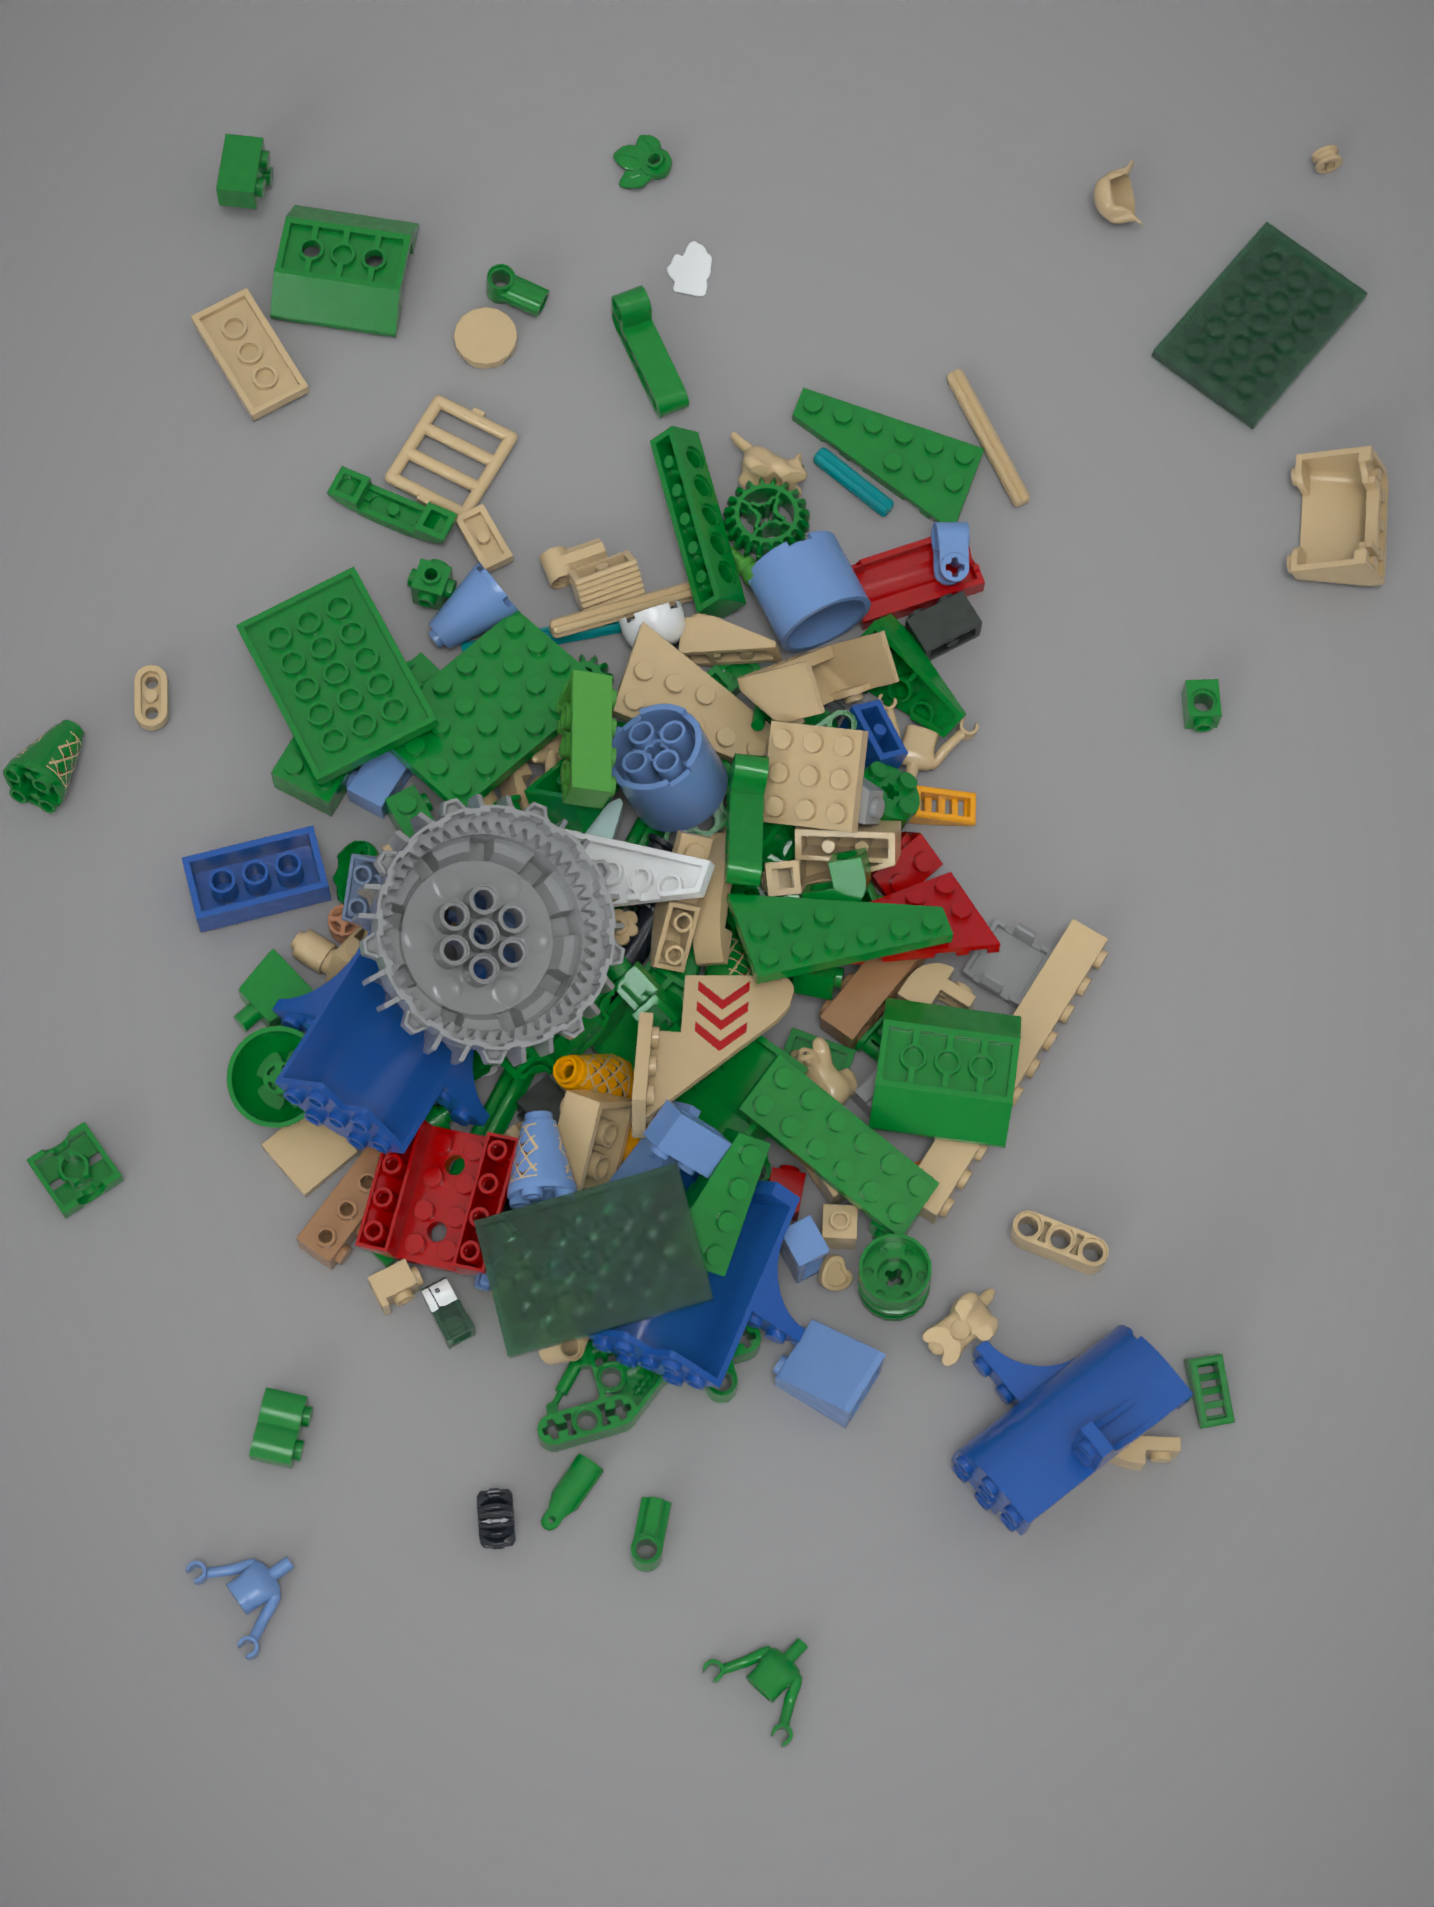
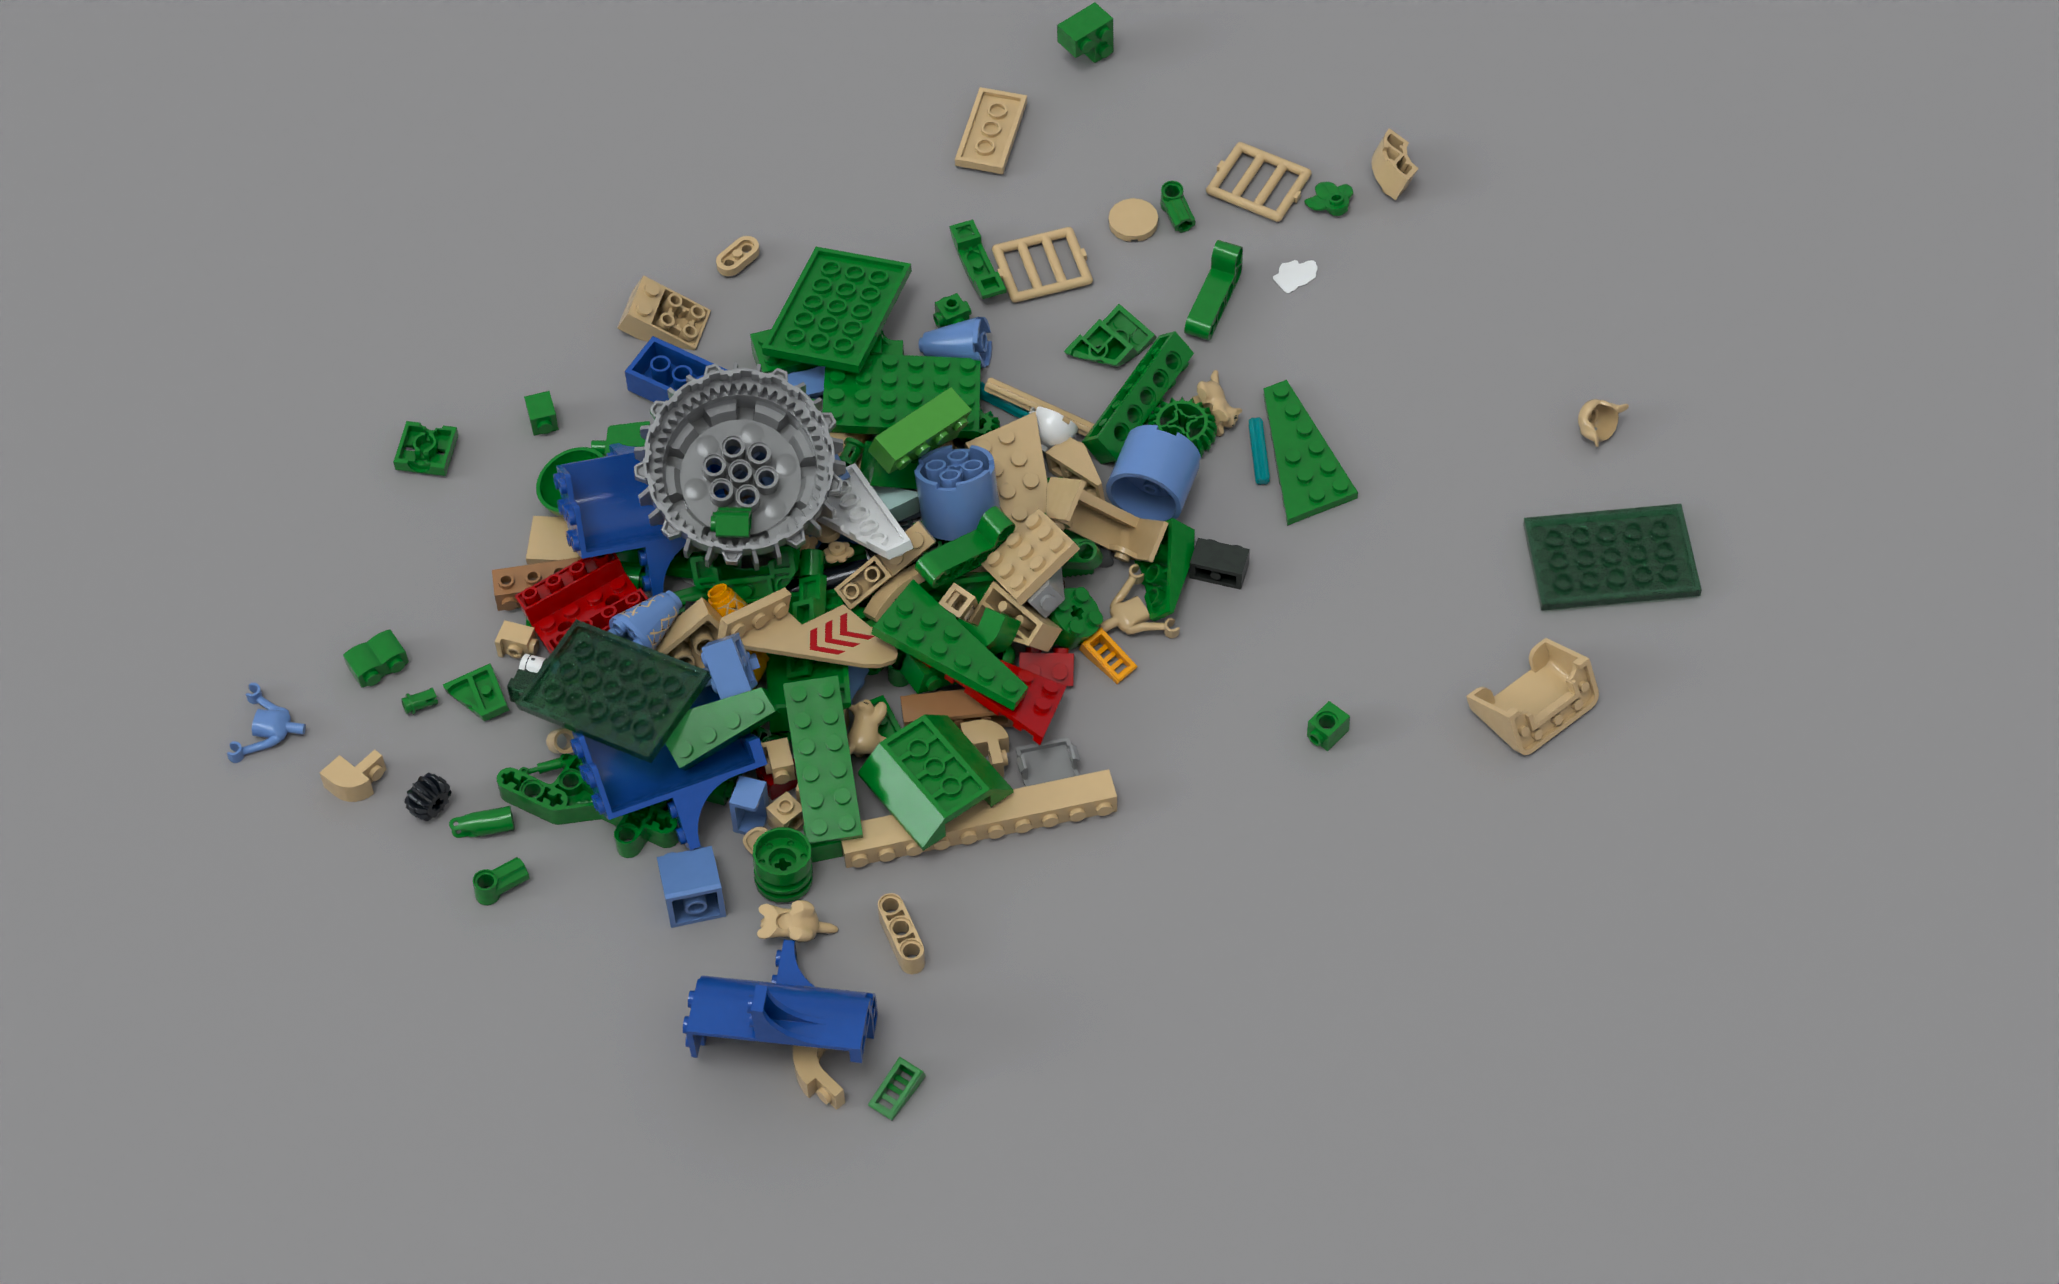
camera: 50 degrees right, 15 degrees down
(46, 767) = (642, 242): green cone -> none
(149, 1032) = (541, 413): none -> green brick
(150, 825) = (663, 314): none -> tan slope
(338, 284) = (1076, 127): green slope -> none
(368, 1430) = (419, 700): none -> green pin
(400, 1573) = (353, 782): none -> tan brick
(416, 1369) = (479, 692): none -> green wing
(483, 538) = (1009, 317): tan plate -> none
(535, 992) = (732, 522): none -> green brick
(553, 235) = (1260, 156): none -> tan bar
(559, 561) = (1039, 363): tan piece -> none
(603, 481) = (1113, 340): none -> green slope
(606, 581) = (1050, 386): tan brick -> none
(669, 80) = (1392, 165): none -> tan brick
(770, 1677) = (477, 1010): green piece -> none
(794, 1178) = (779, 760): none -> tan brick
(883, 740) = (1108, 581): blue brick -> none
(905, 581) = (1236, 523): red gear -> none
(951, 546) = (1268, 518): medium blue piece -> none
(988, 438) = (1368, 490): tan axle -> none
(1327, 159) = (1763, 500): tan bush -> none

